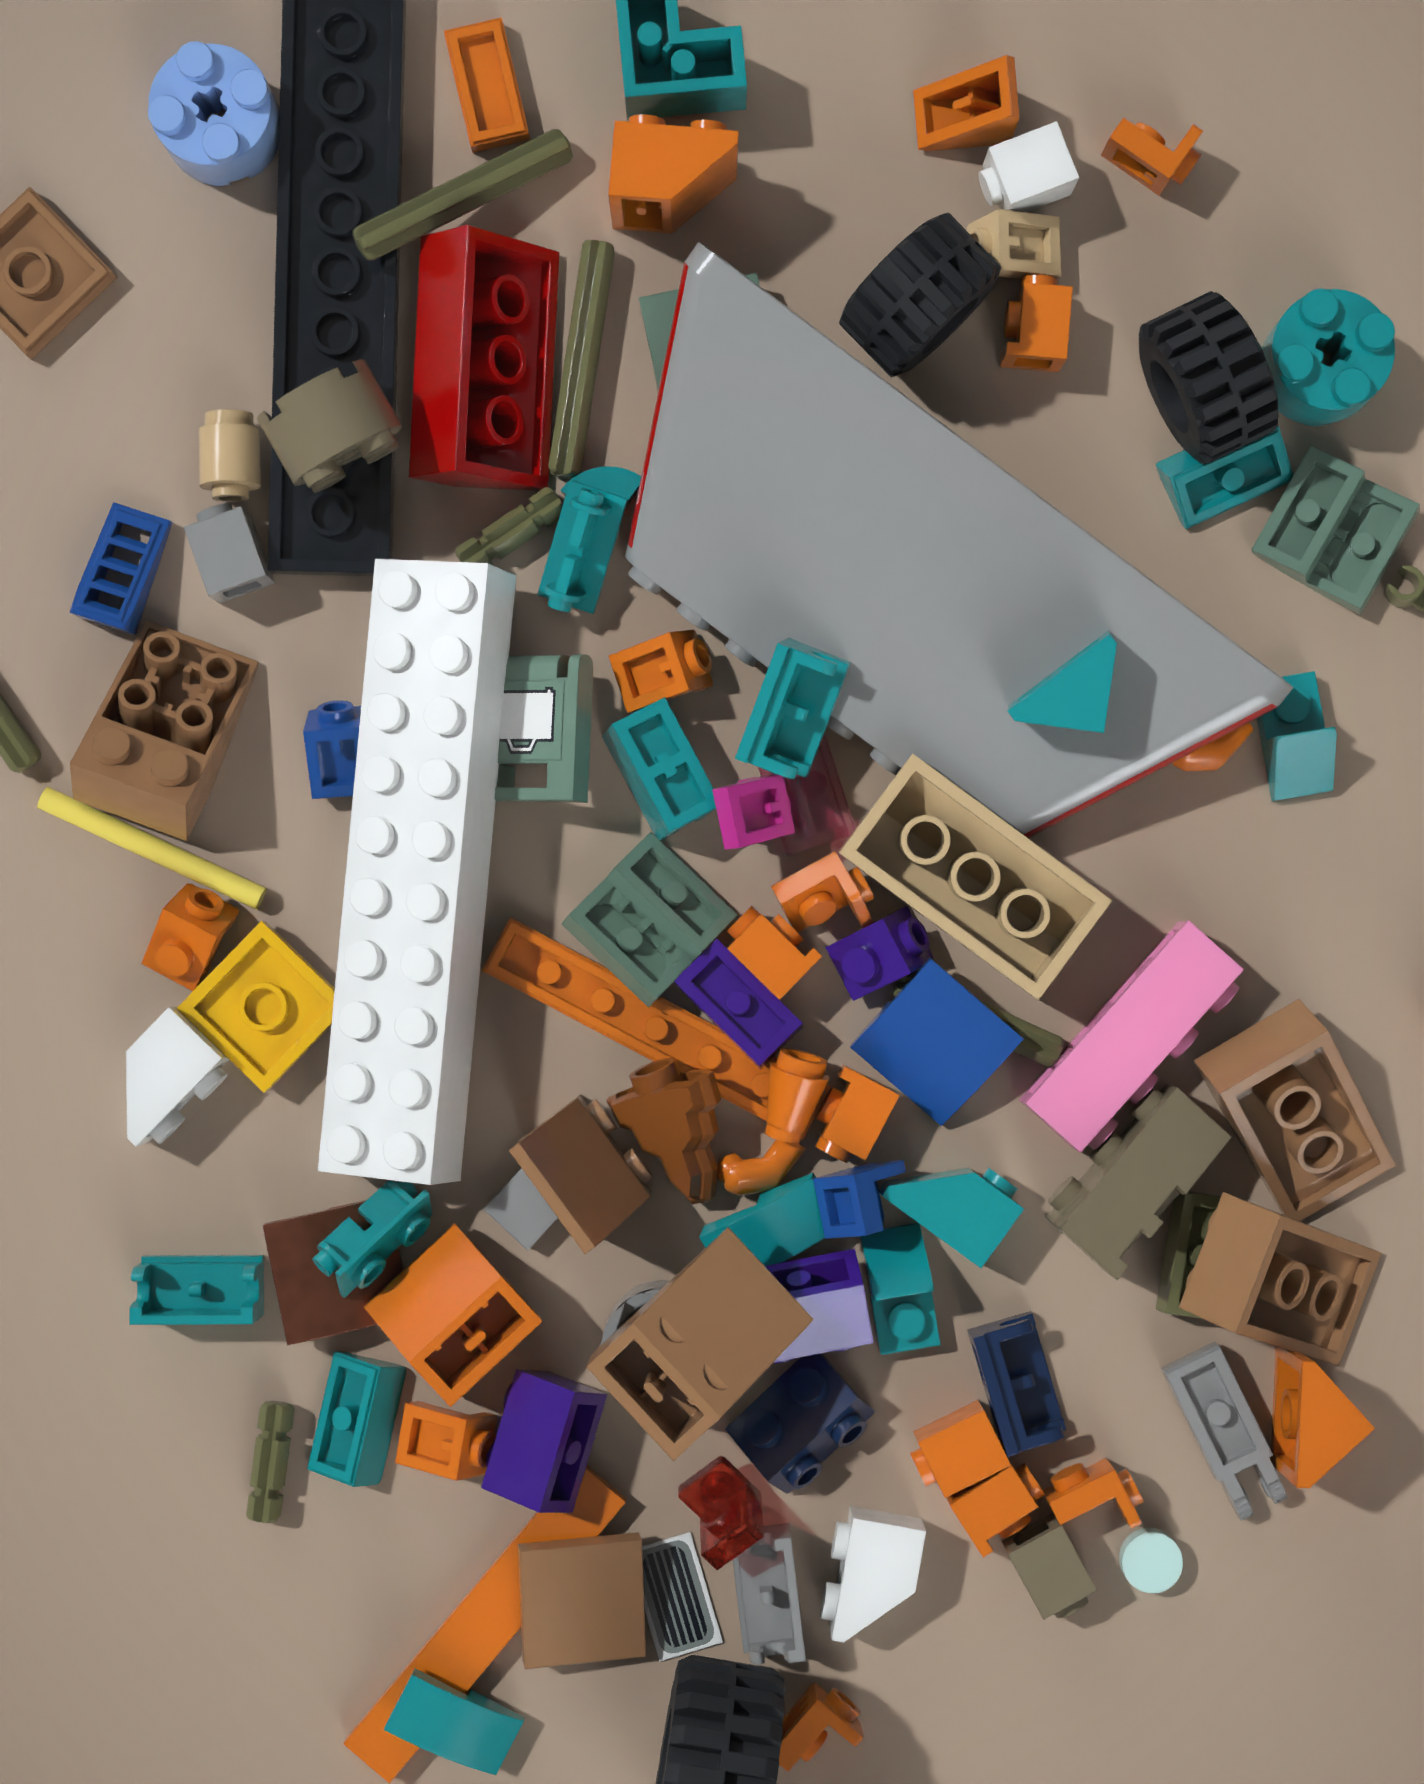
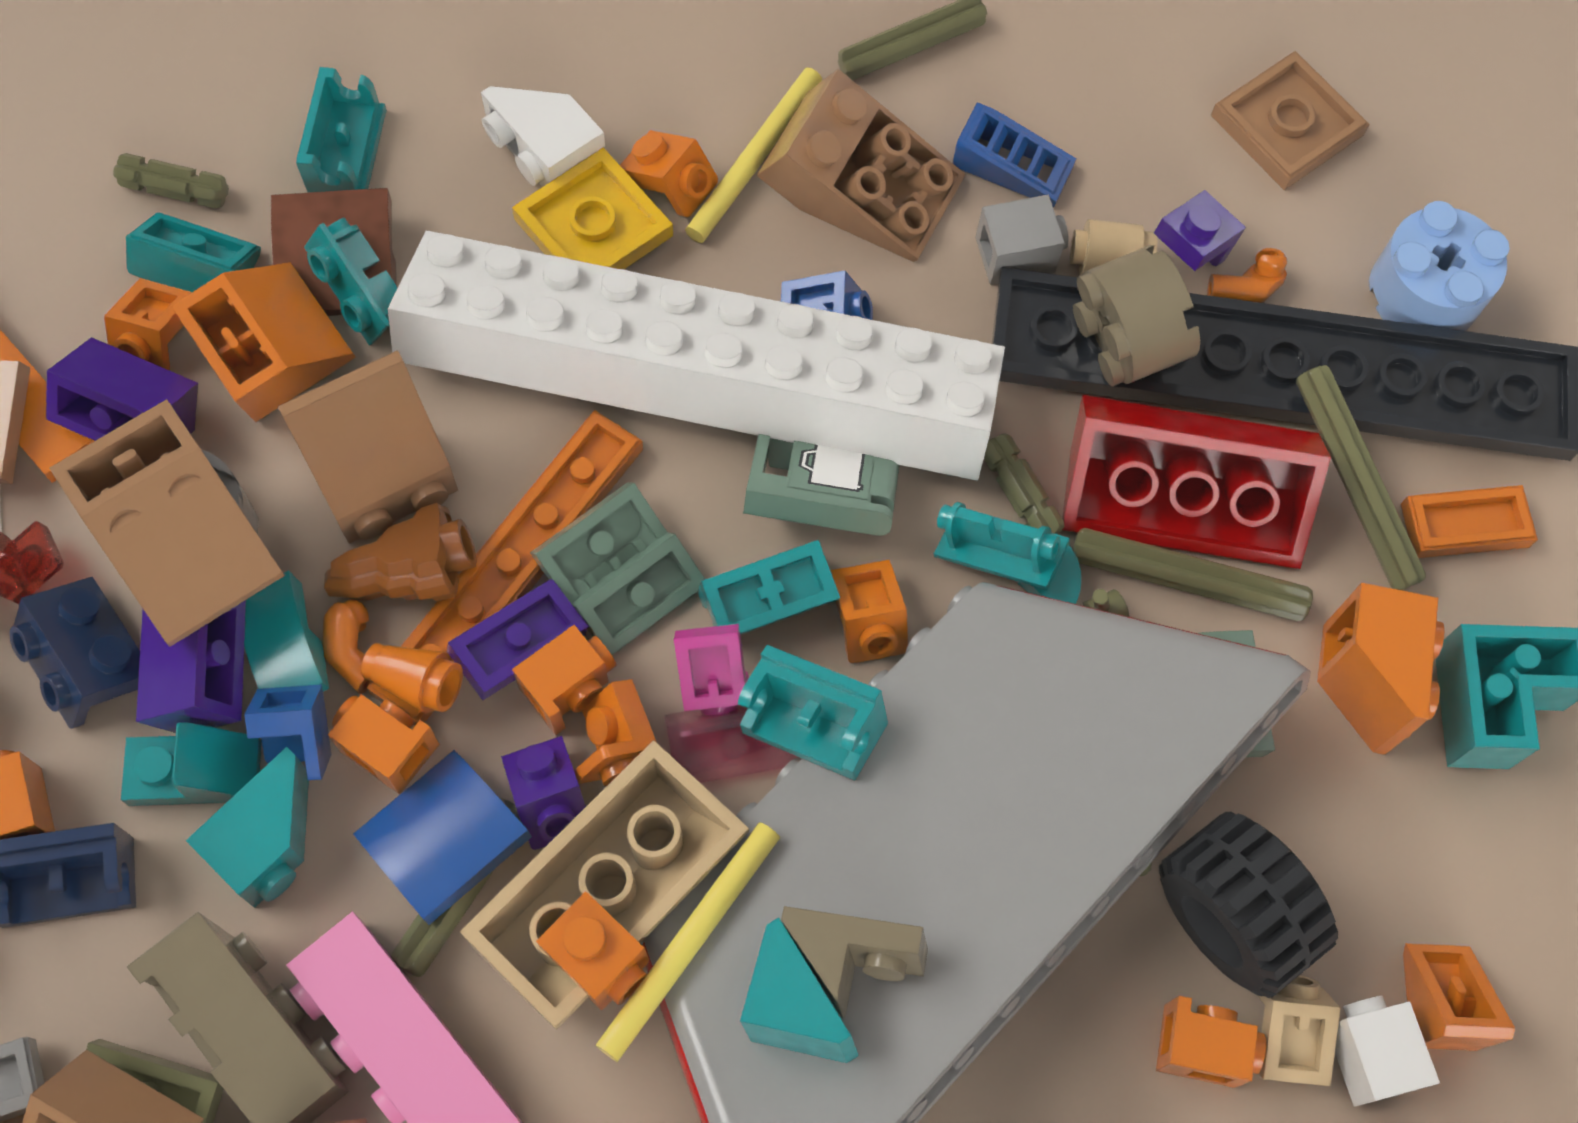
camera: 95 degrees right, 20 degrees down
(203, 364) = (1200, 231): none -> bracket
(246, 306) = (1256, 283): none -> orange arm
(629, 439) = (1108, 601): none -> olive hand
(1018, 794) = (687, 942): none -> light yellow bar
(1021, 662) = (839, 942): none -> dark tan slope
(1044, 874) = (595, 952): none -> orange bracket

